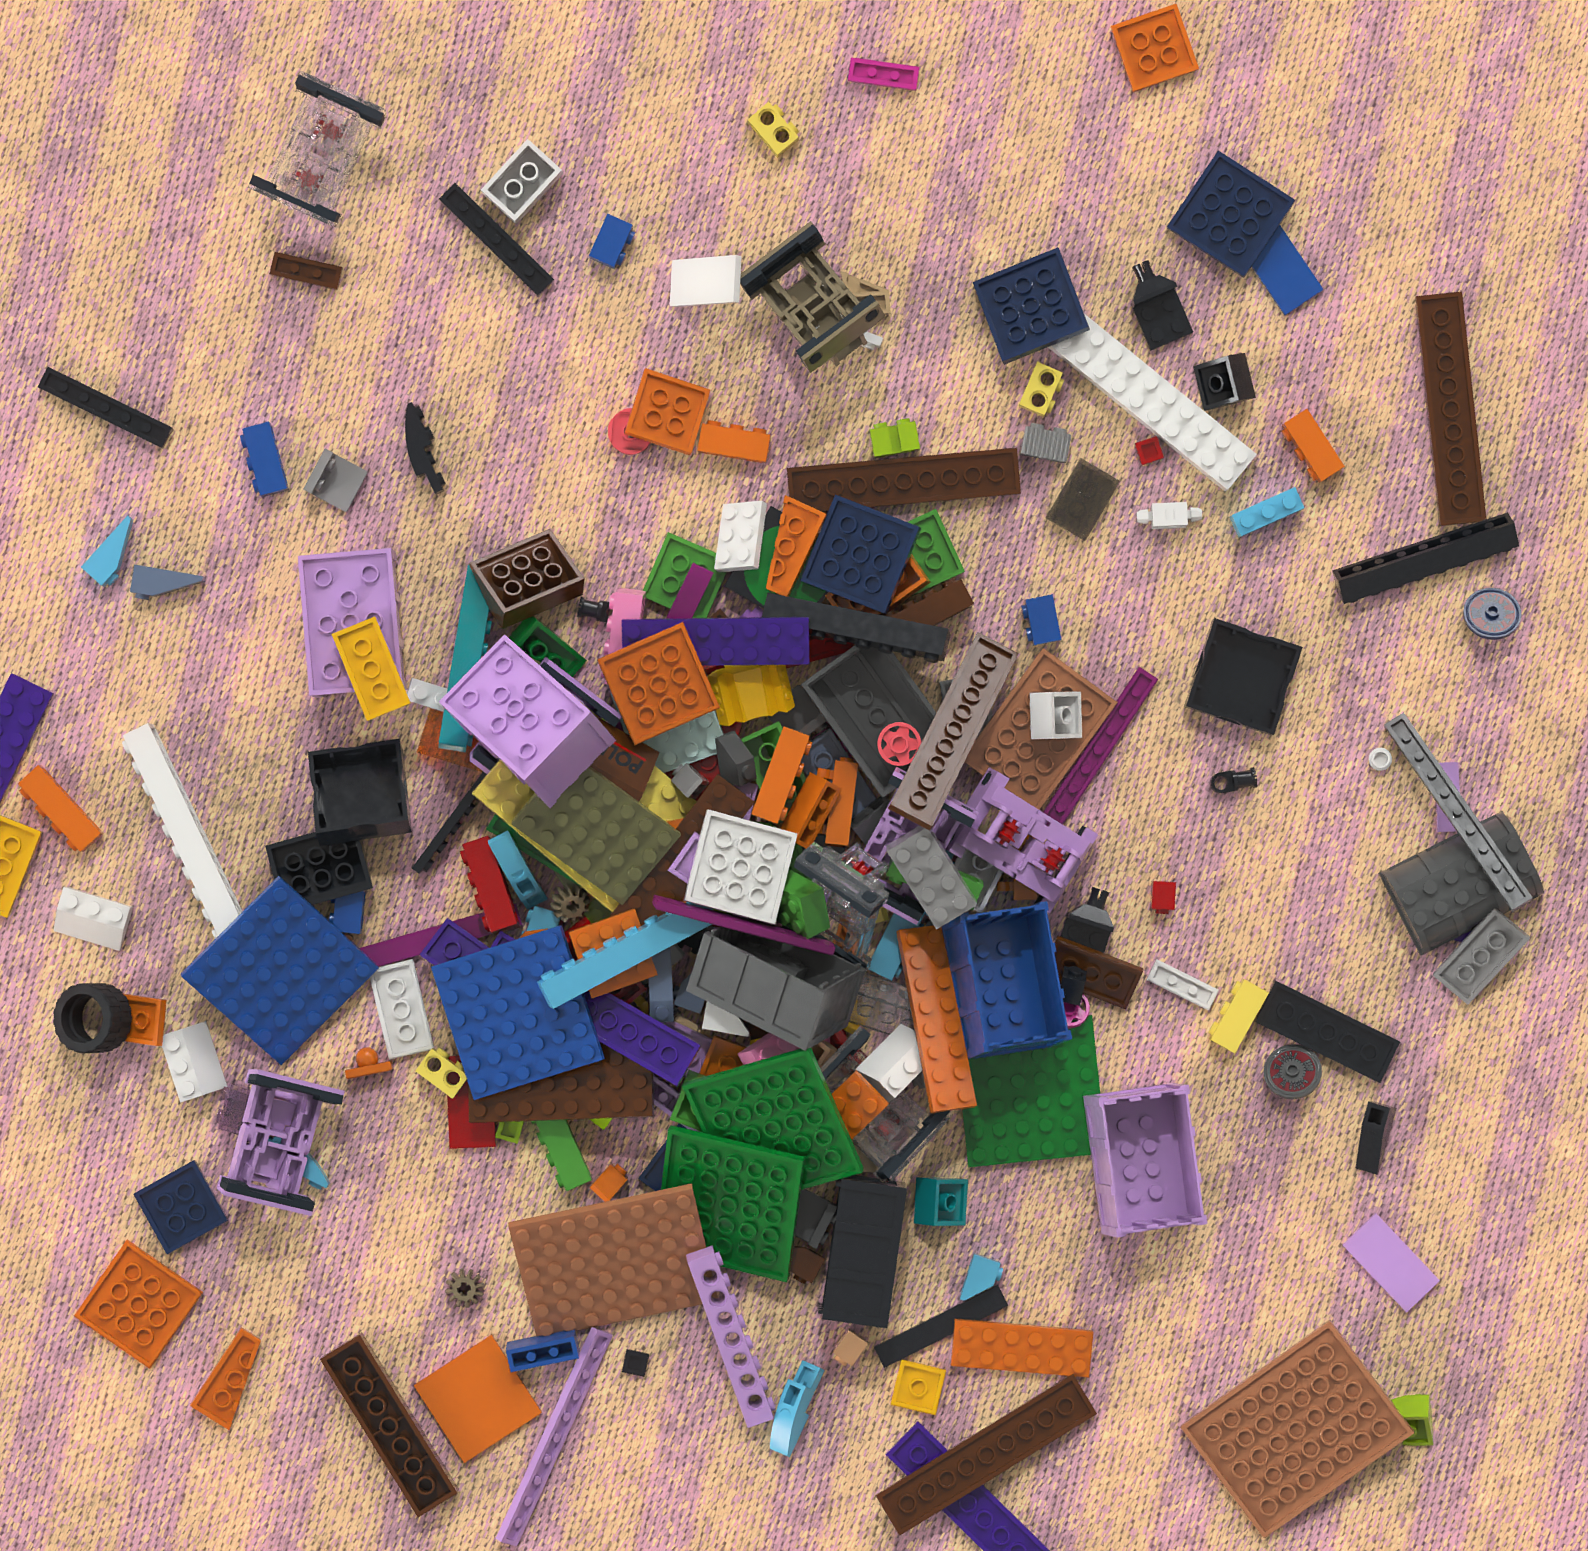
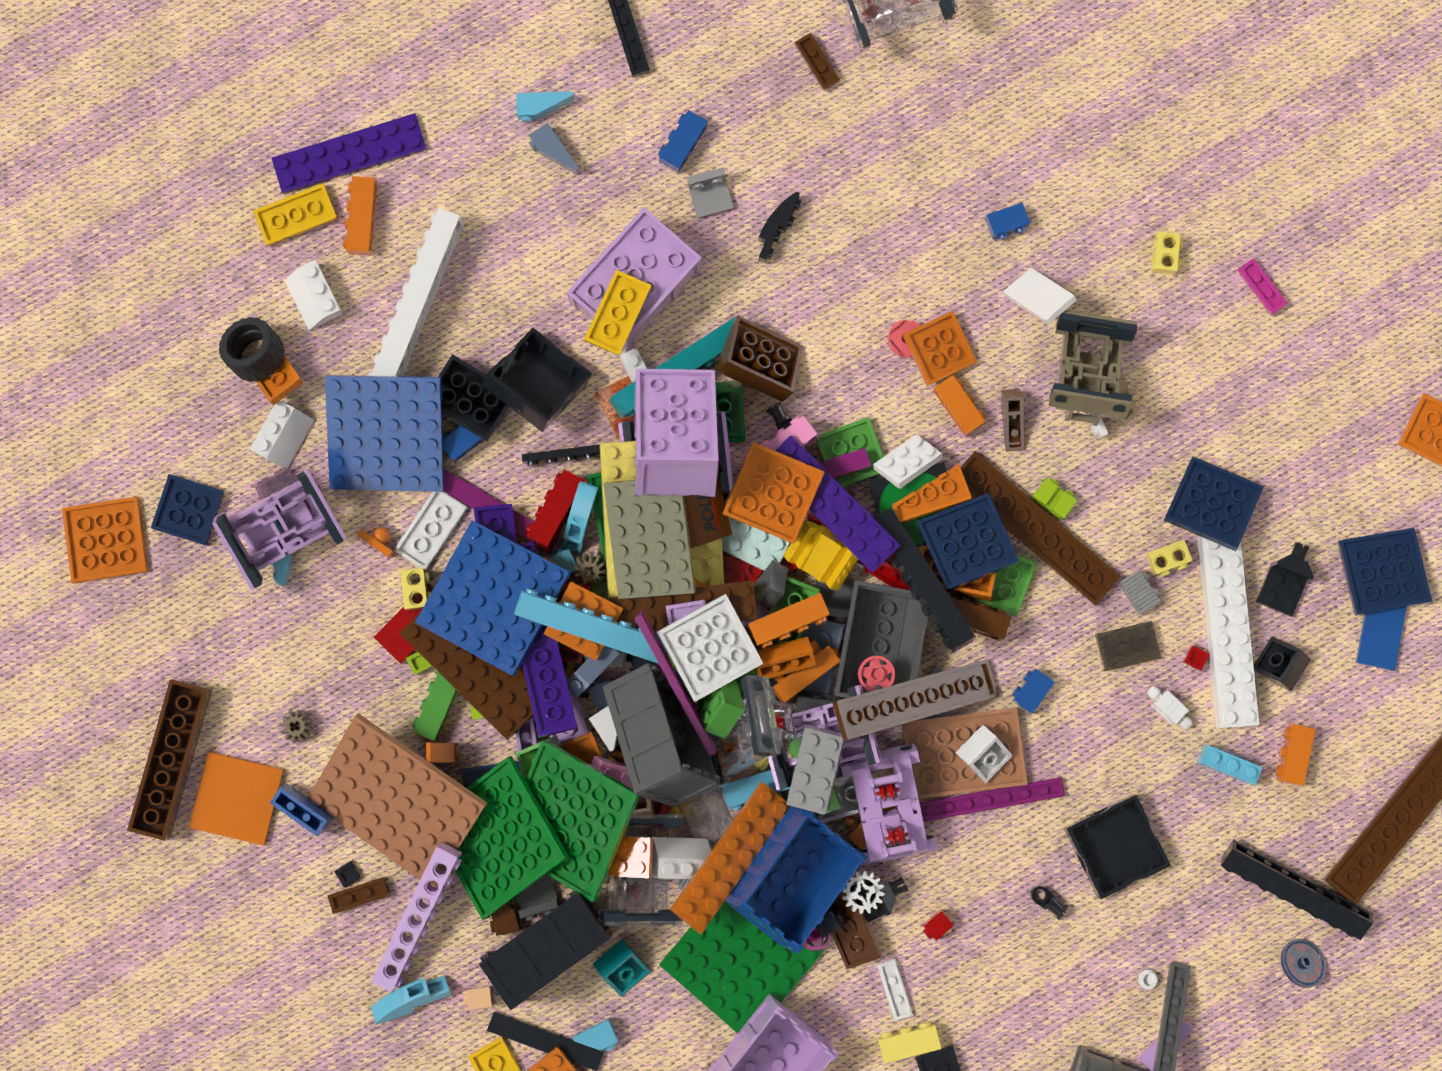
camera: 55 degrees right, 5 degrees down
(223, 1387) = (100, 638): orange wing -> none
(496, 239) = (943, 154): black plate -> none
(522, 181) = (991, 135): white brick -> none
(554, 1436) = (255, 867): lavender plate -> none
(663, 1370) = (358, 895): none -> reddish brown plate
(689, 781) = (732, 569): light grey slope -> none
(791, 407) = (1013, 419): none -> reddish brown slope
(1077, 923) = (871, 889): none -> white gear

